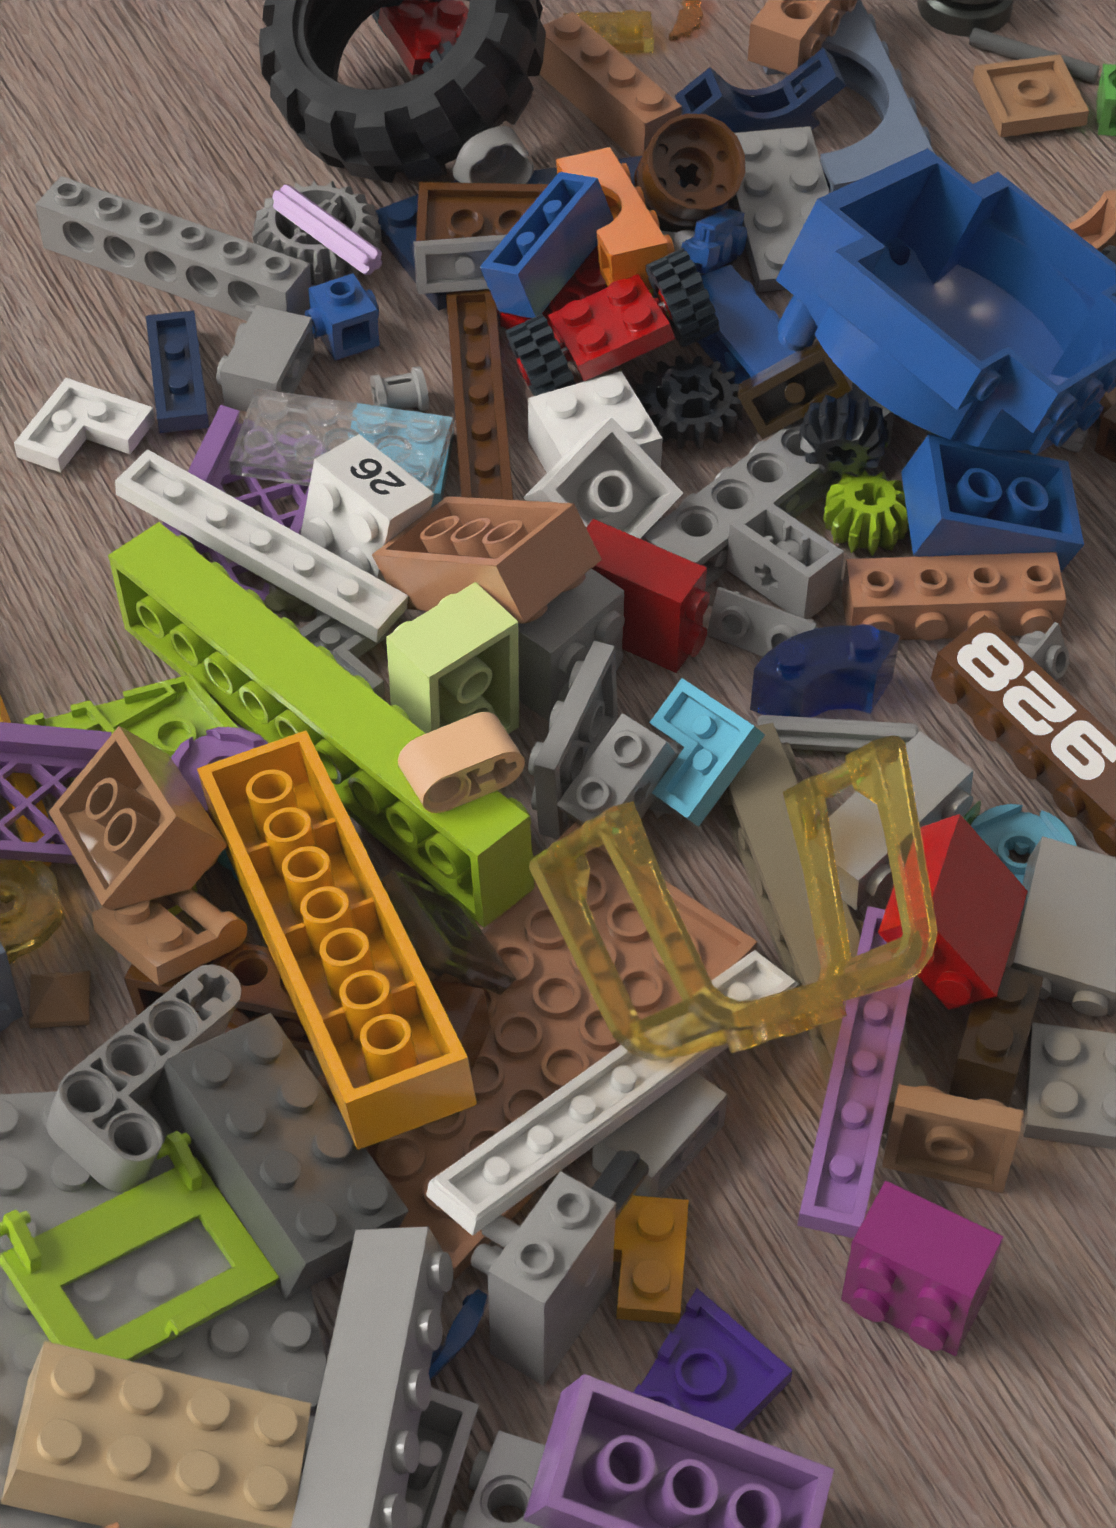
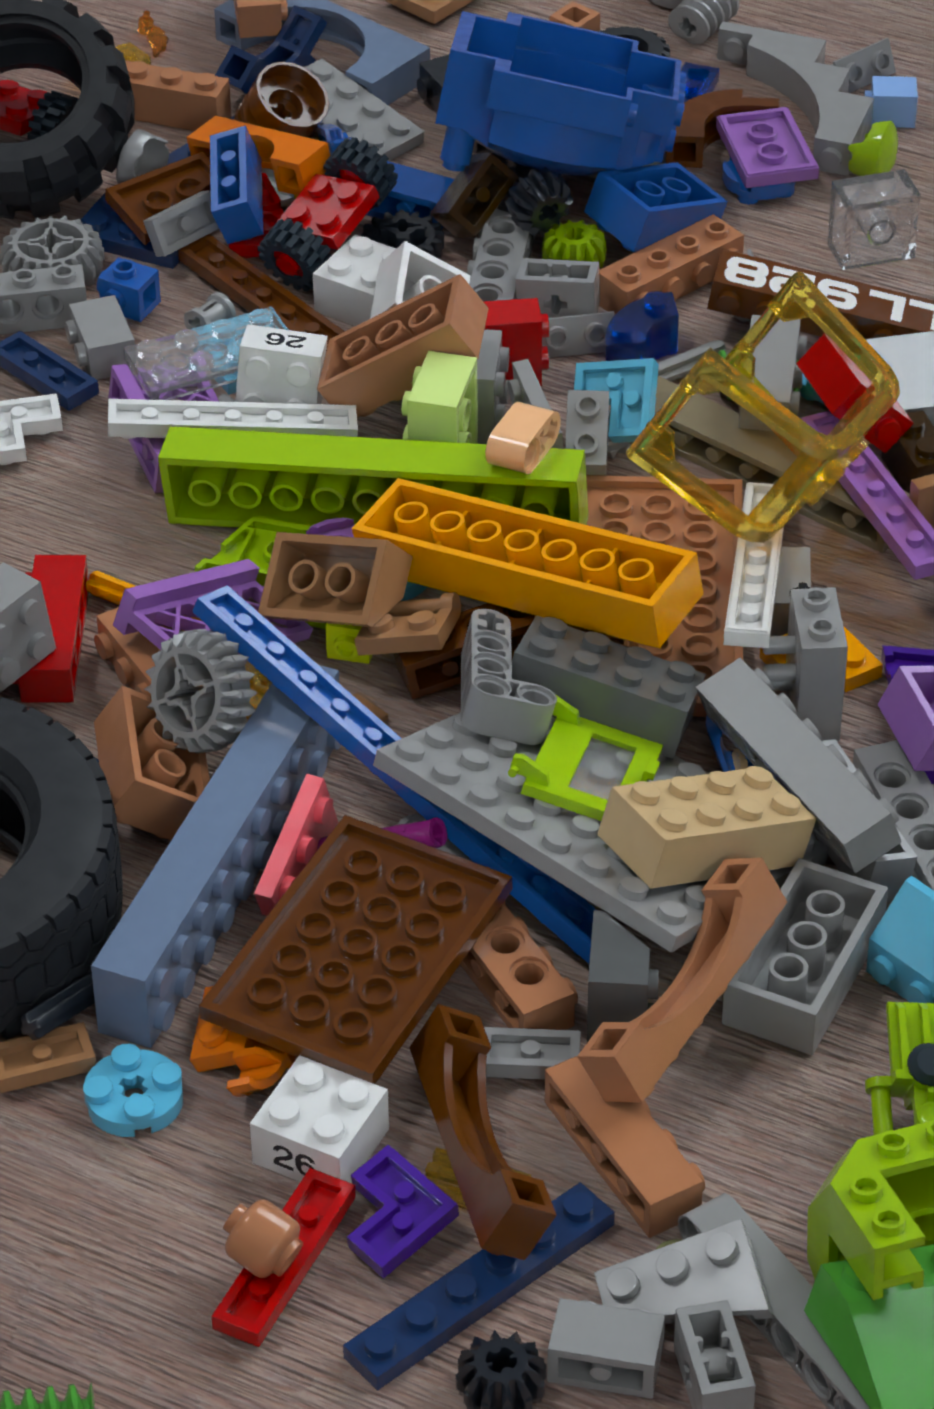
camera: 35 degrees left, 10 degrees down
(327, 229) = (72, 240): lavender axle -> none

